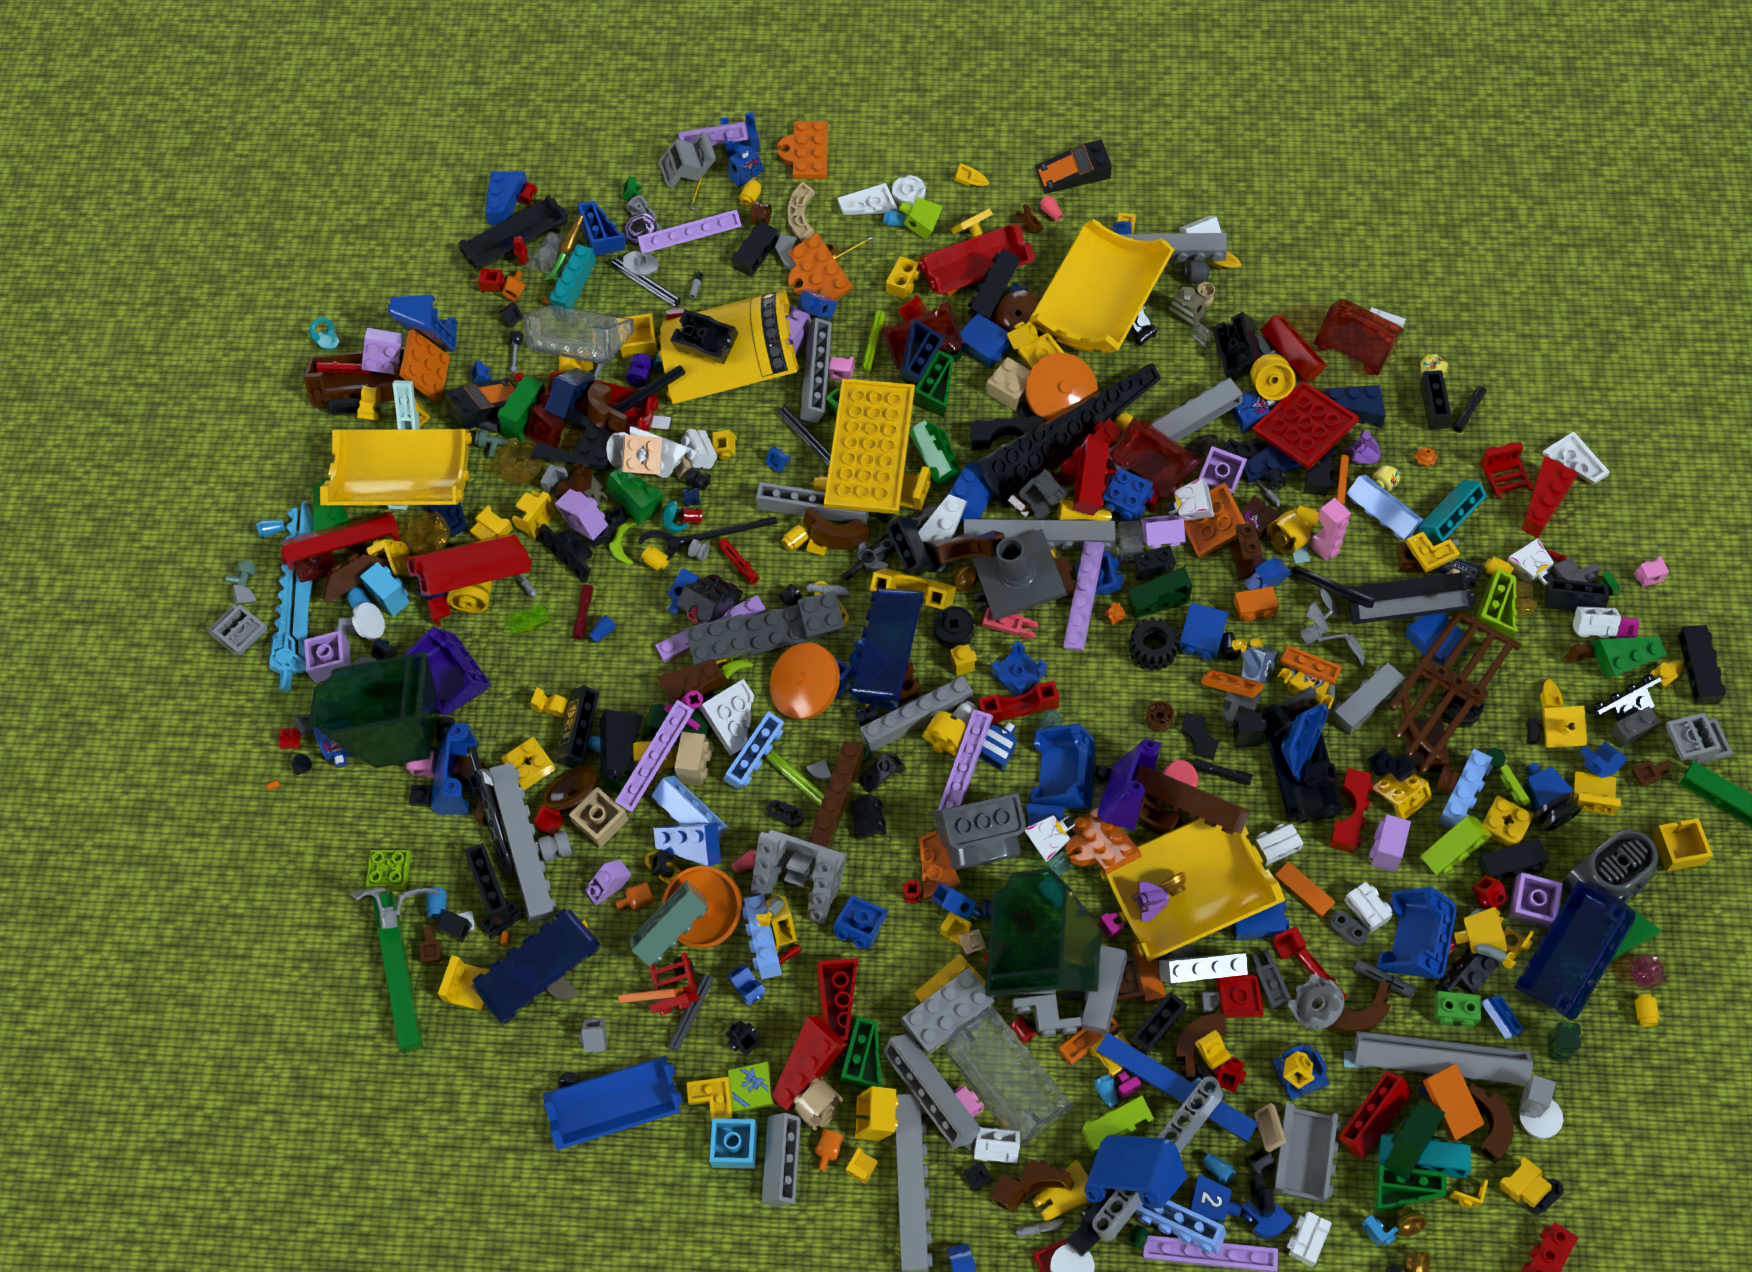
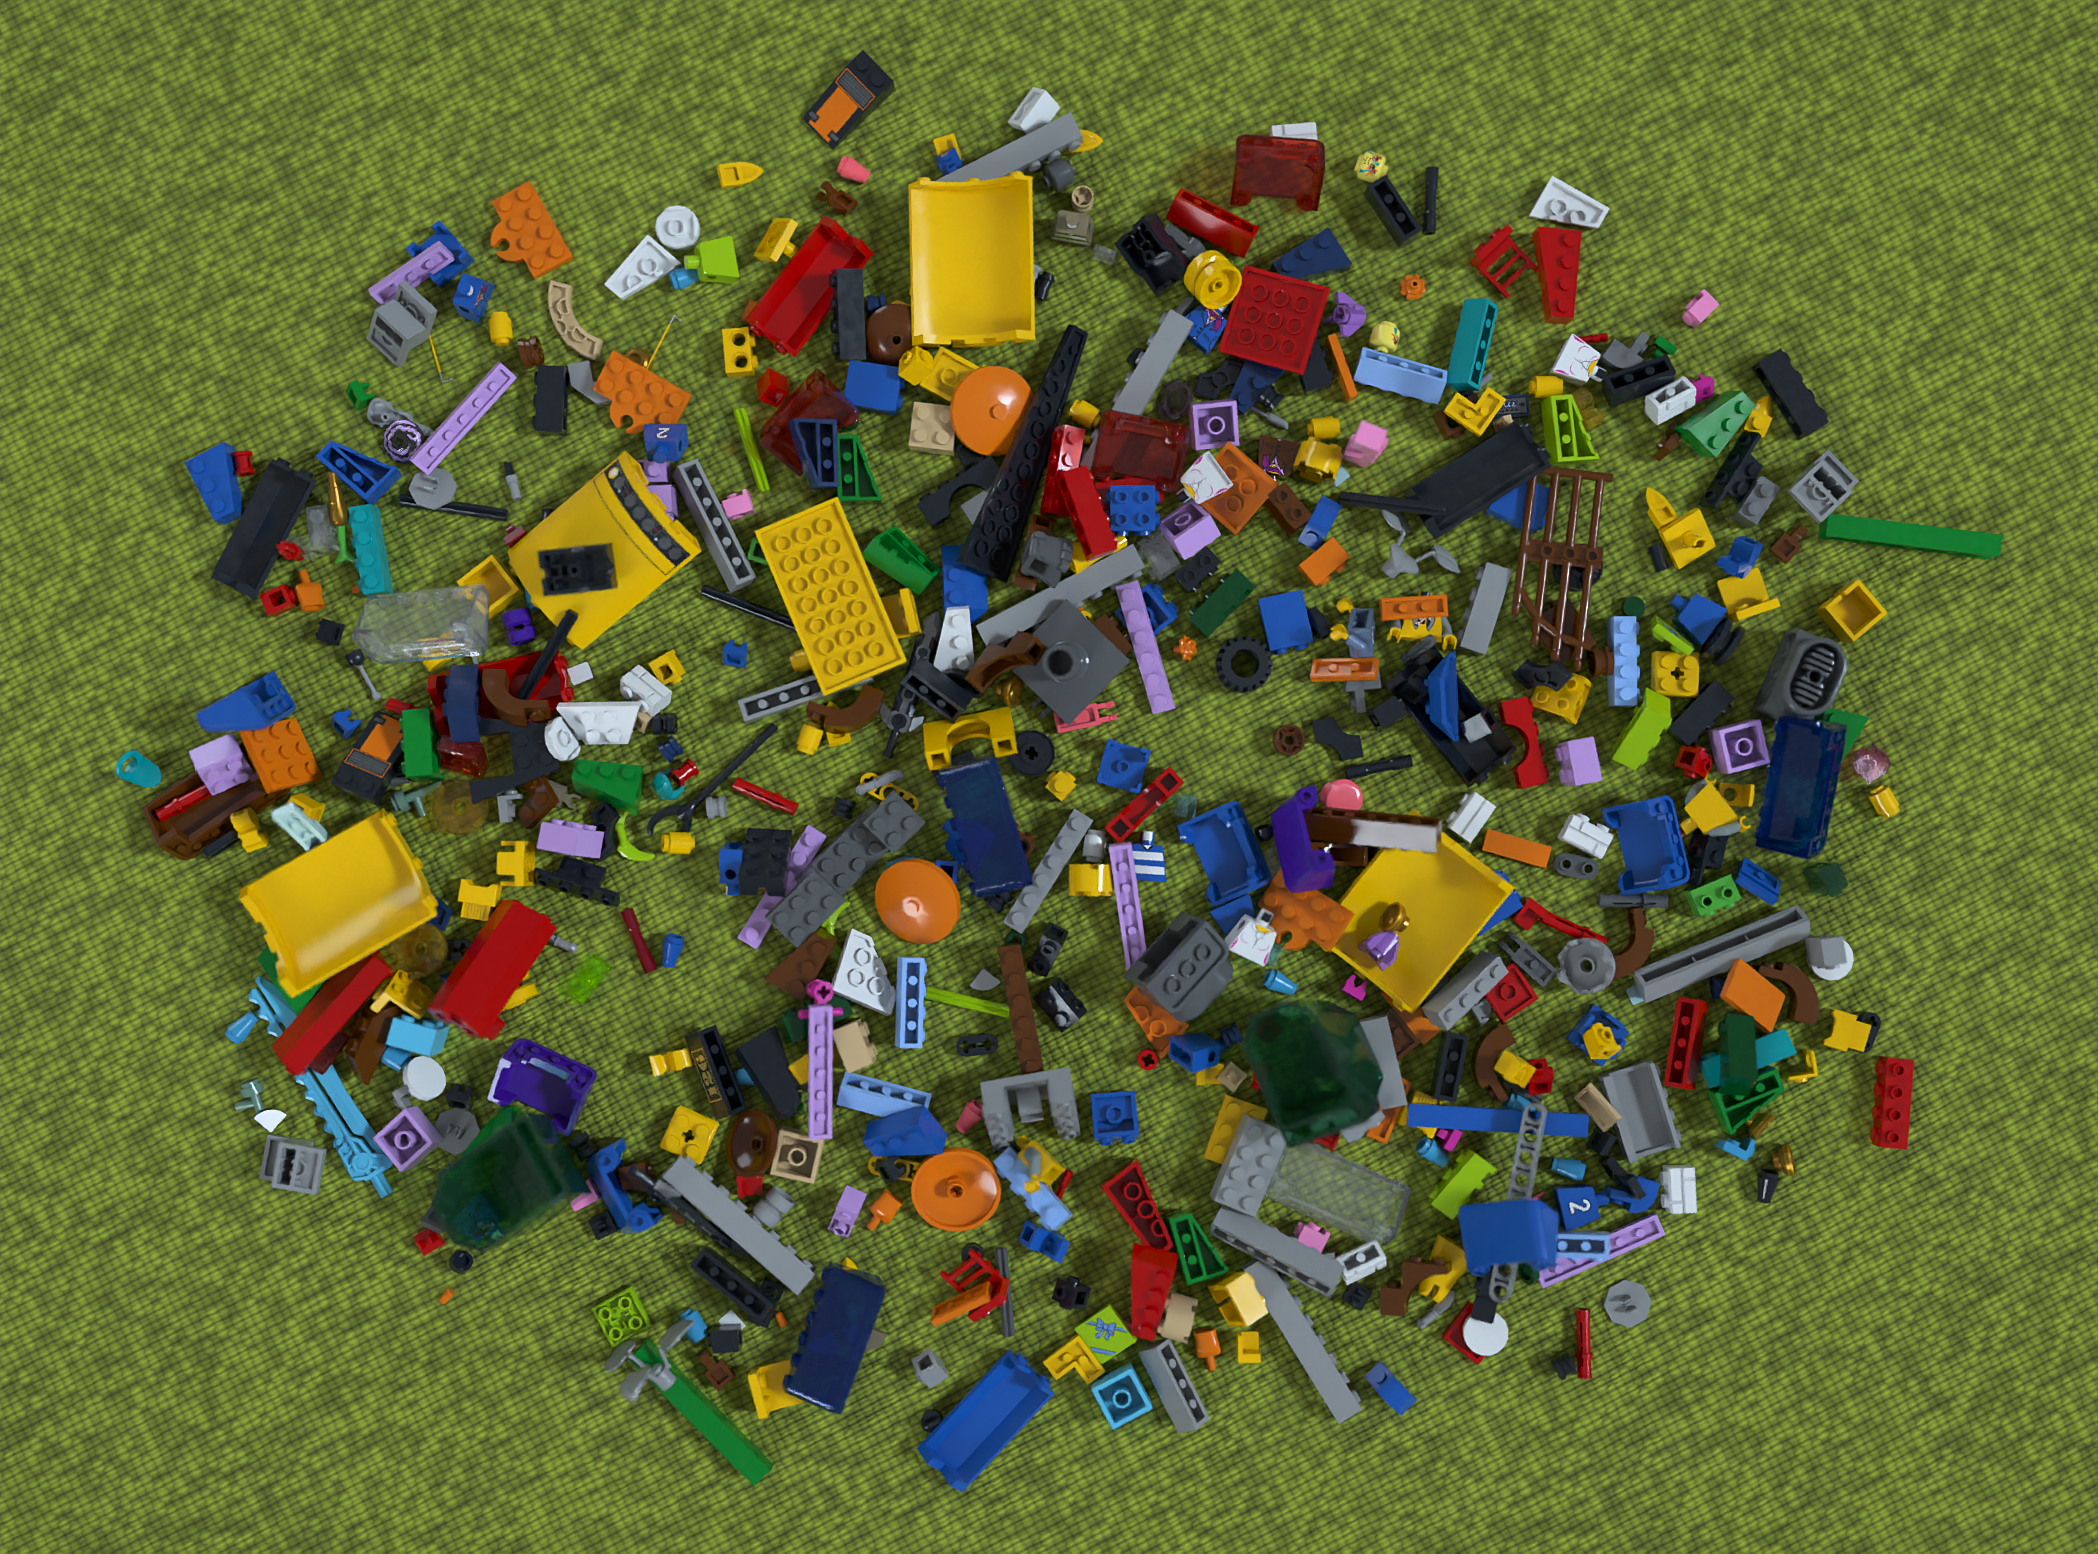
camera: 35 degrees left, 25 degrees up
(651, 445) = (607, 741): light nougat brick -> none
(668, 923) = (938, 1231): sand green brick -> none

